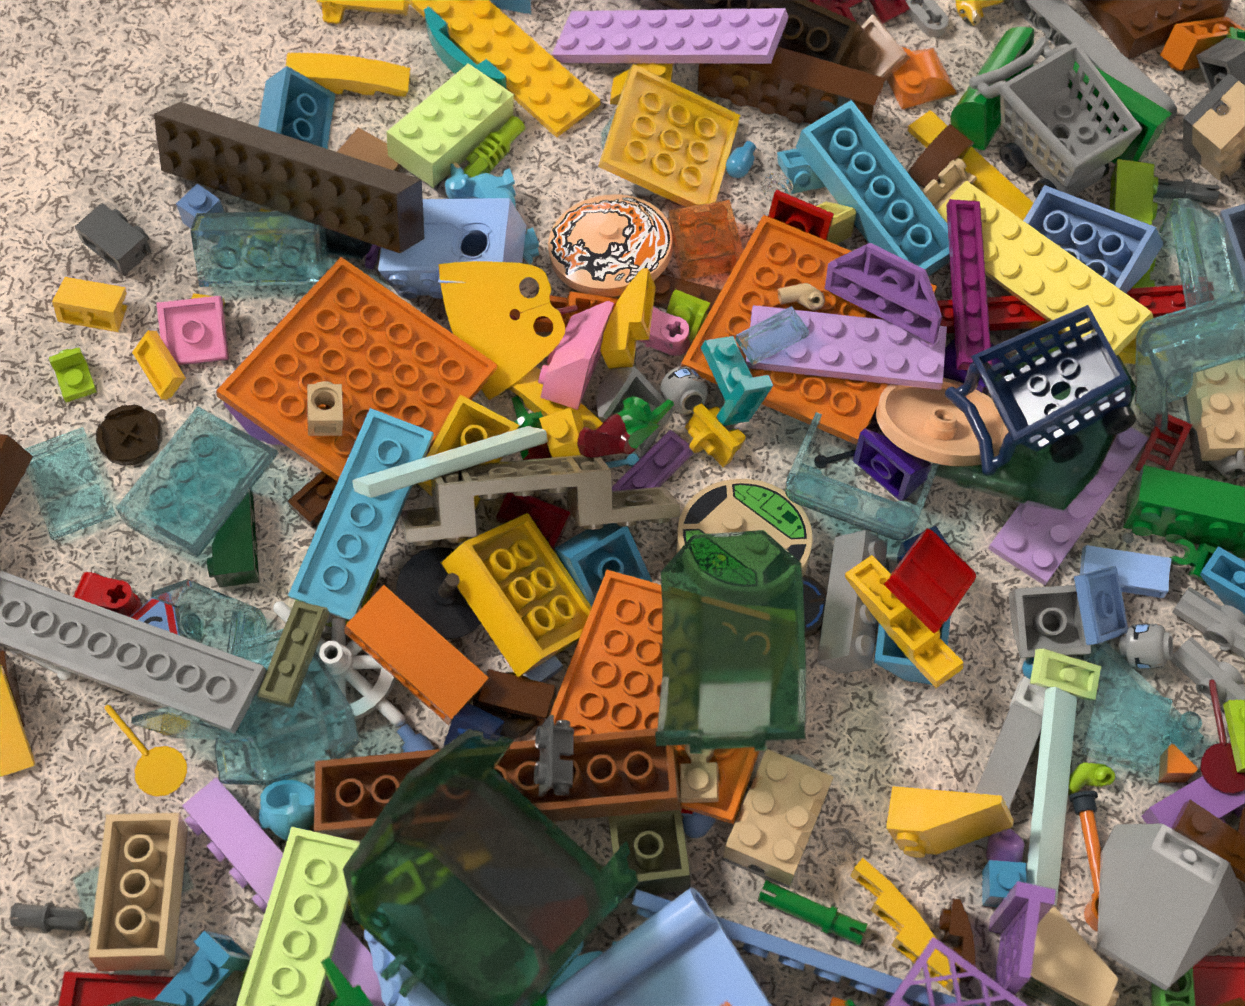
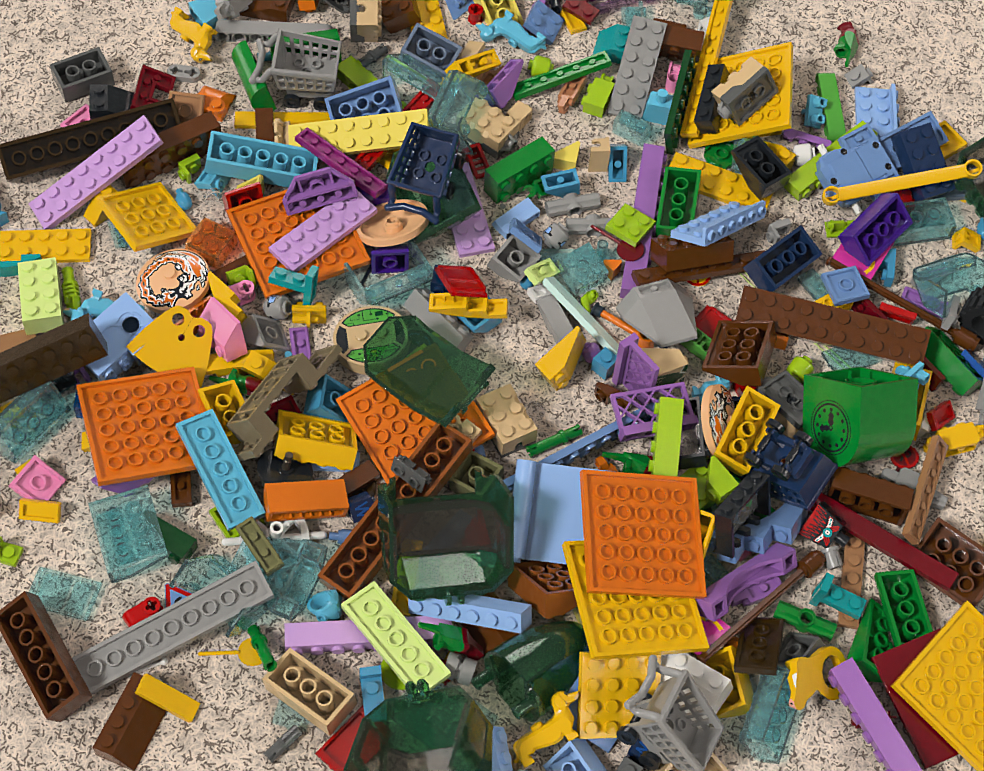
camera: 55 degrees left, 5 degrees down
(129, 435) = (63, 550): dark brown tile -> none
(166, 768) = (259, 643): none -> green pin
(321, 421) = (159, 449): tan brick -> none
(449, 461) = (232, 413): light aqua tile -> none
(622, 430) = (279, 340): animal -> none
(772, 335) = (293, 250): clear light blue tile -> none
(789, 125) = (187, 166): none -> lime bracket
(803, 294) = (283, 224): tan arm -> none
(902, 917) = (583, 409): yellow slope -> none

